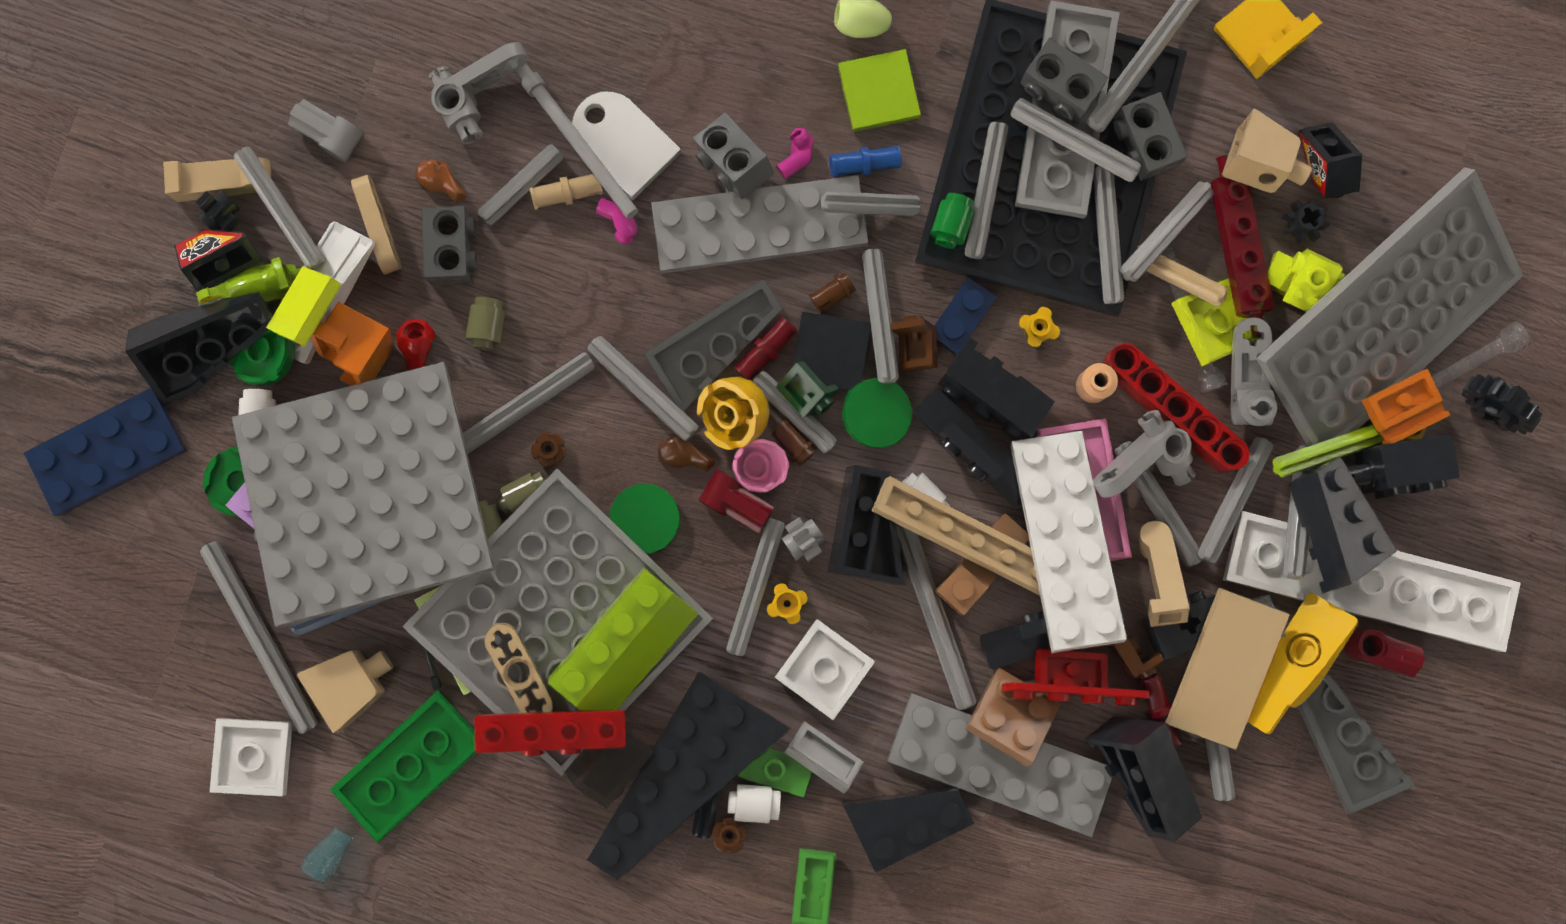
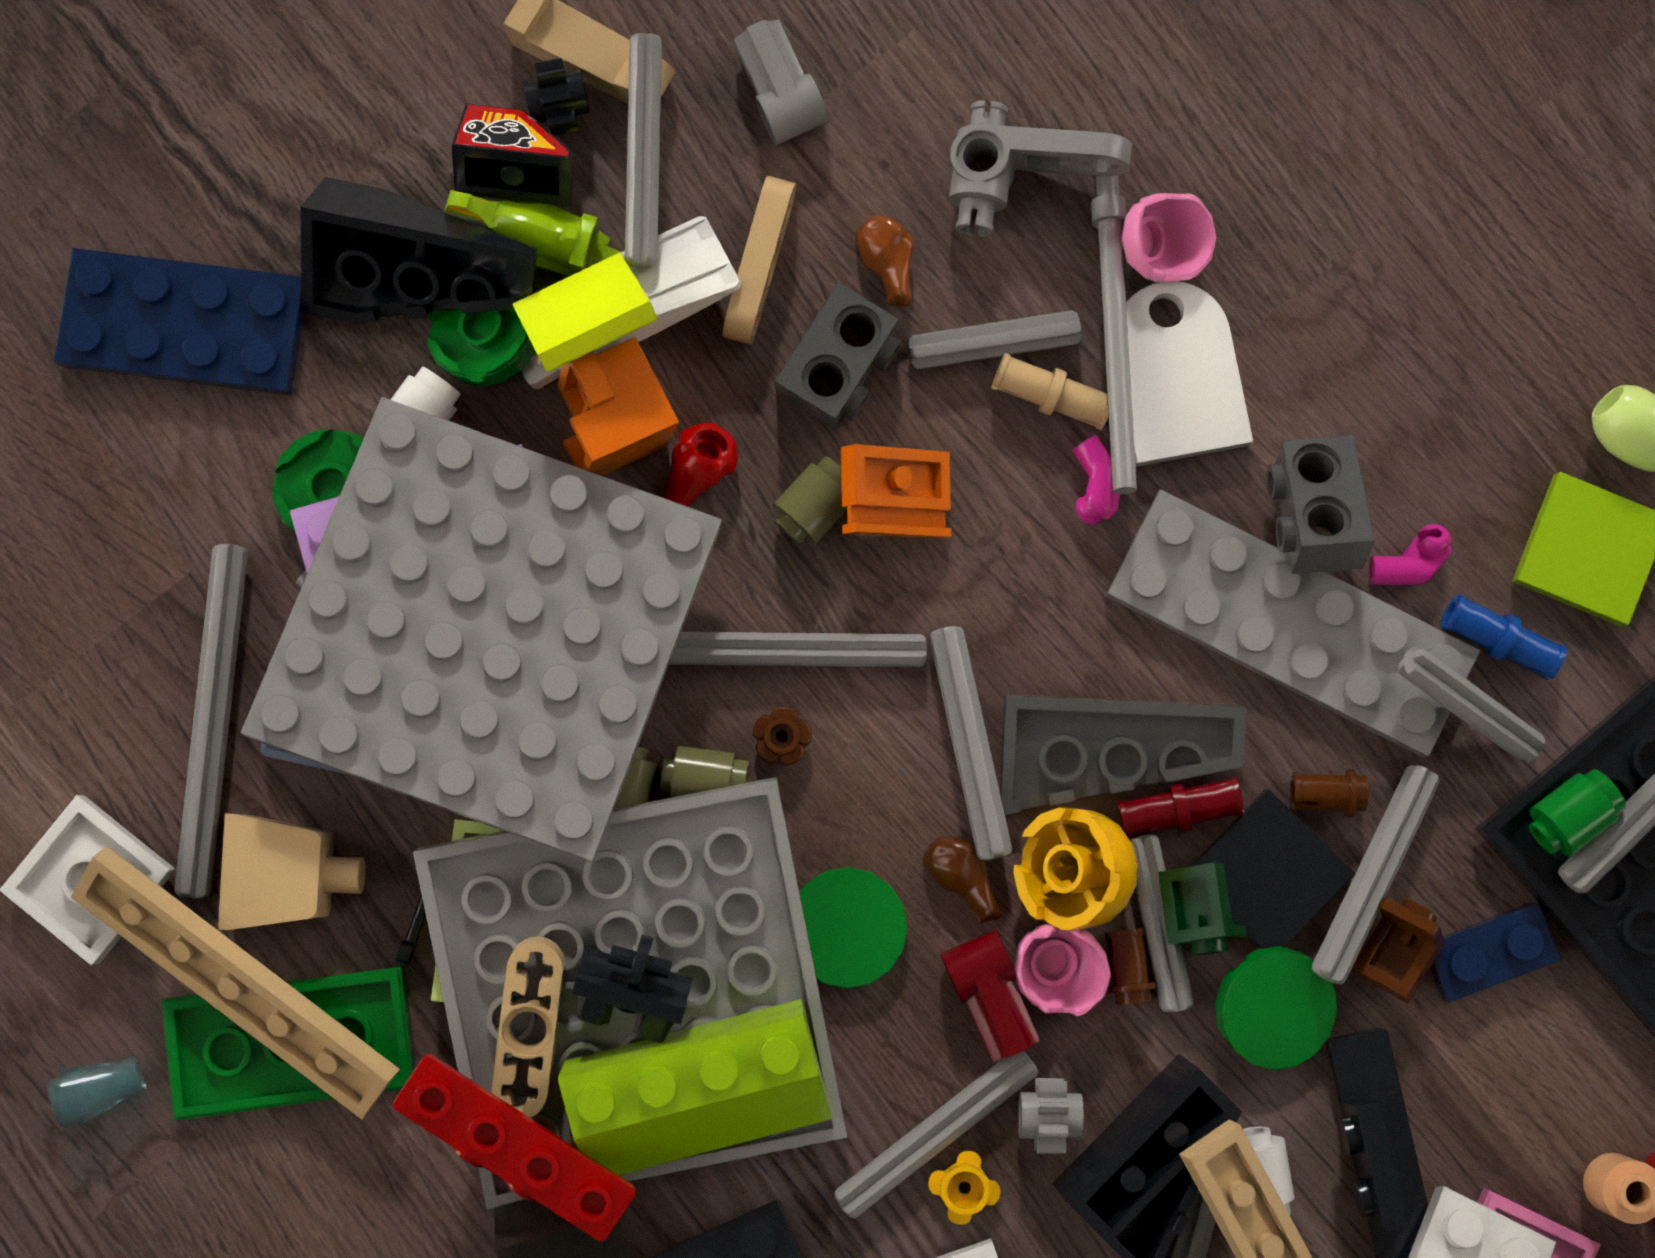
camera: 40 degrees right, 0 degrees up
(358, 752) = (234, 982): none -> tan plate
(521, 291) = (895, 491): none -> orange plate
(552, 612) = (633, 983): none -> black hips
(570, 76) = (1169, 237): none -> bright pink hair
(995, 392) = (1467, 1098): black wedge -> none
(1034, 336) = (1575, 1042): yellow plate -> none

